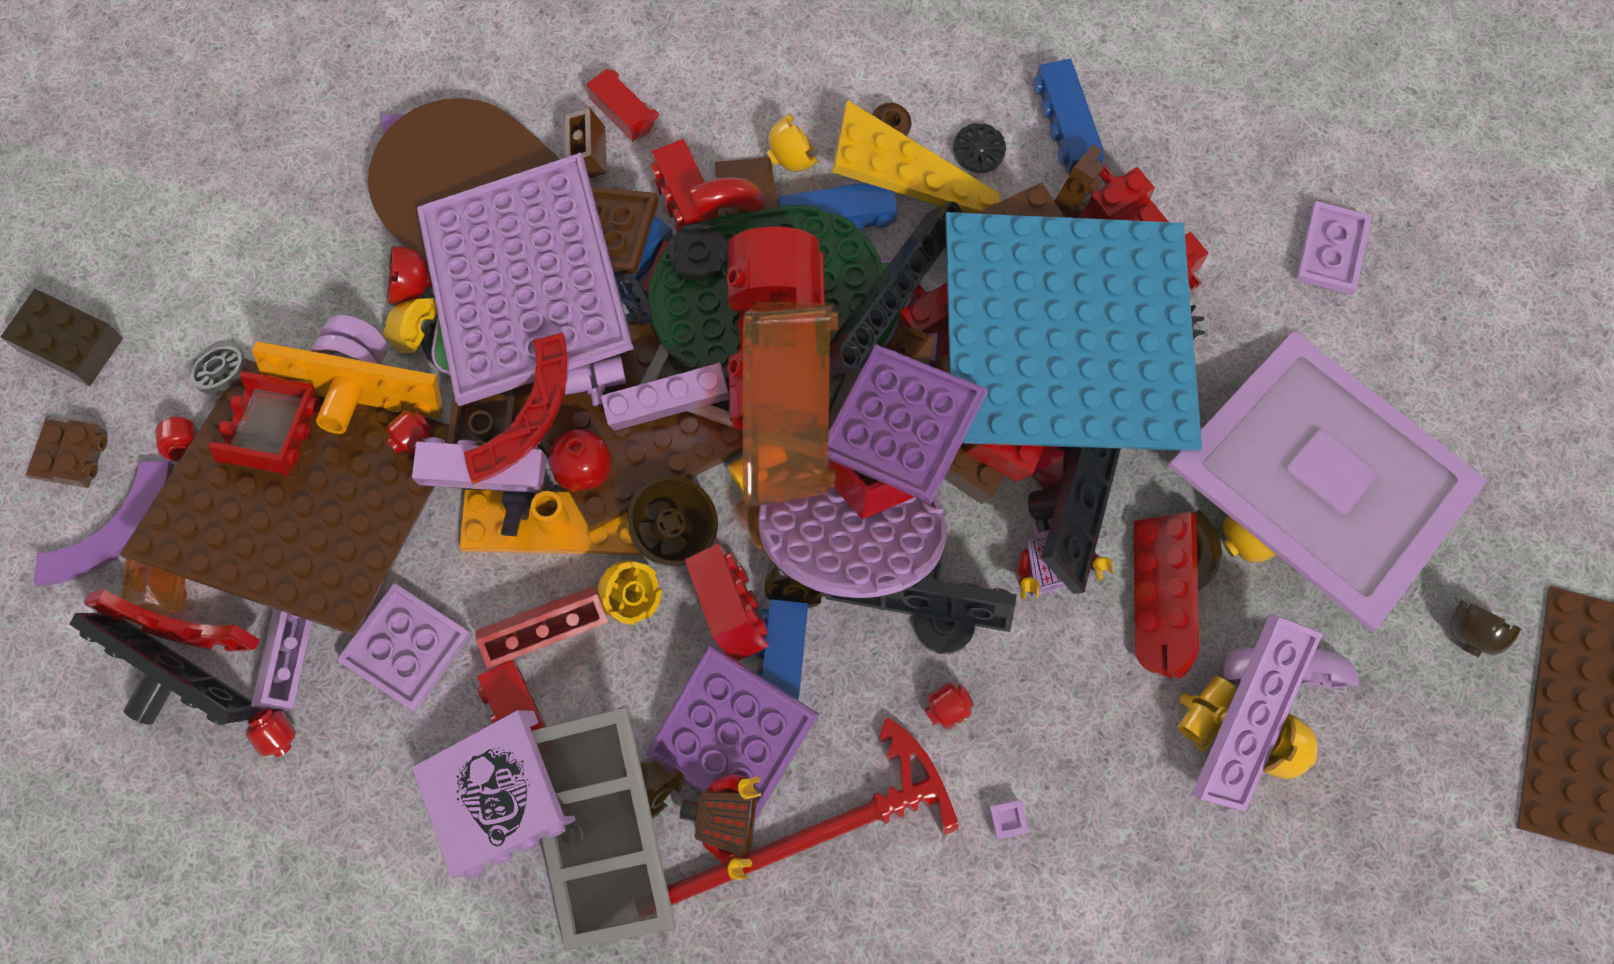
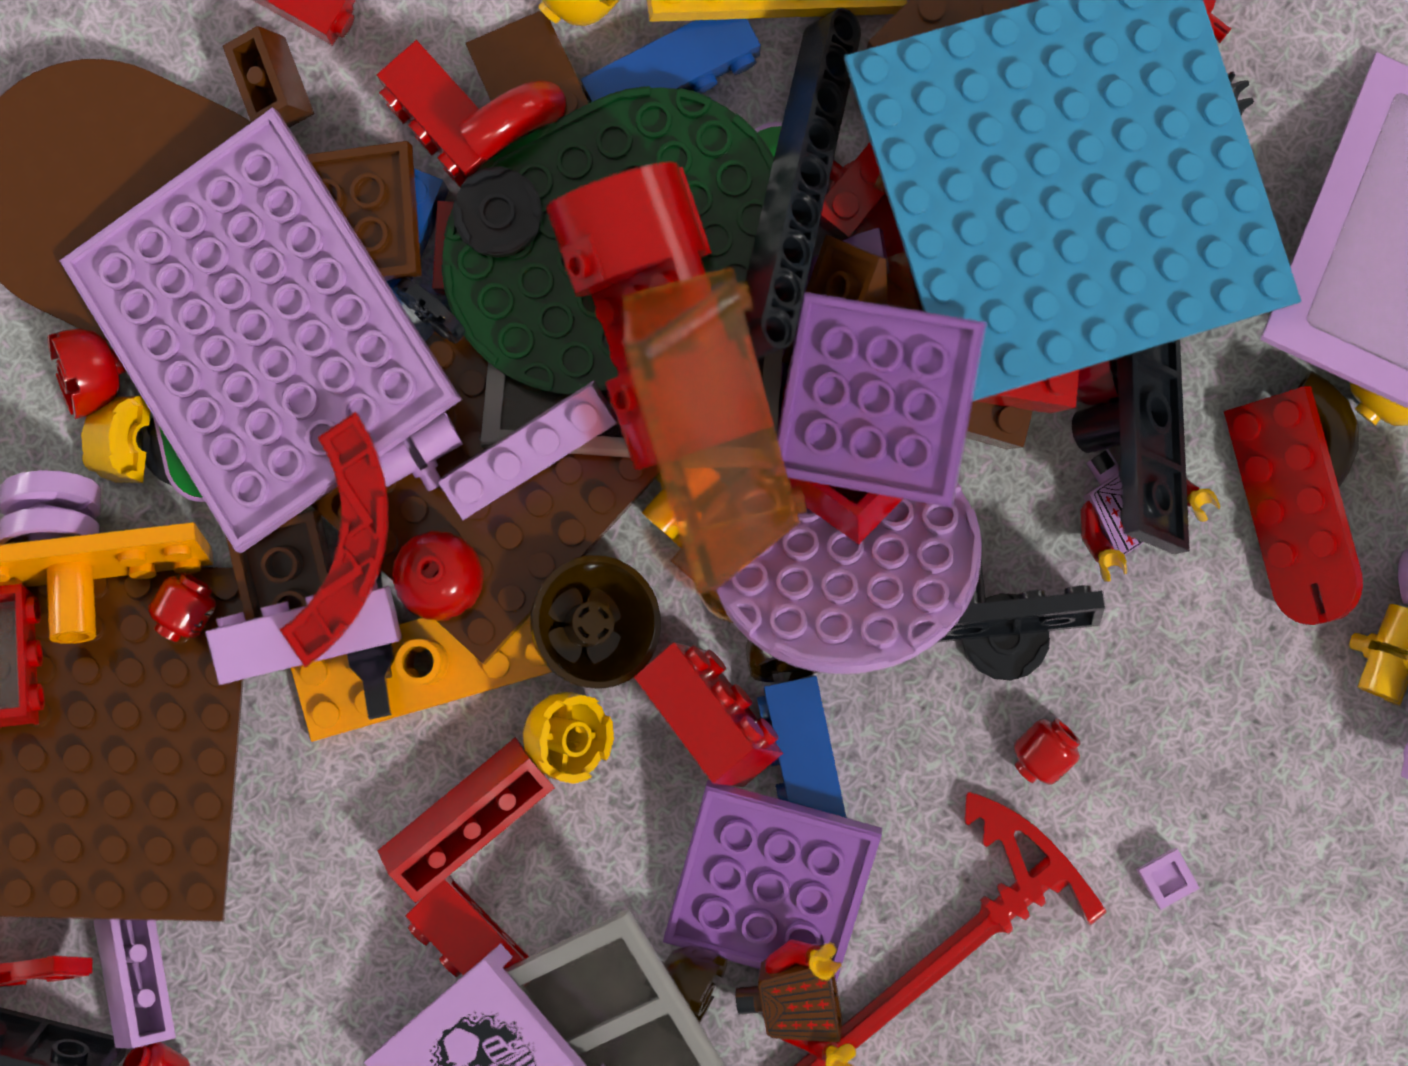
camera: 10 degrees left, 15 degrees up
(404, 647) = (289, 901): lavender plate -> none

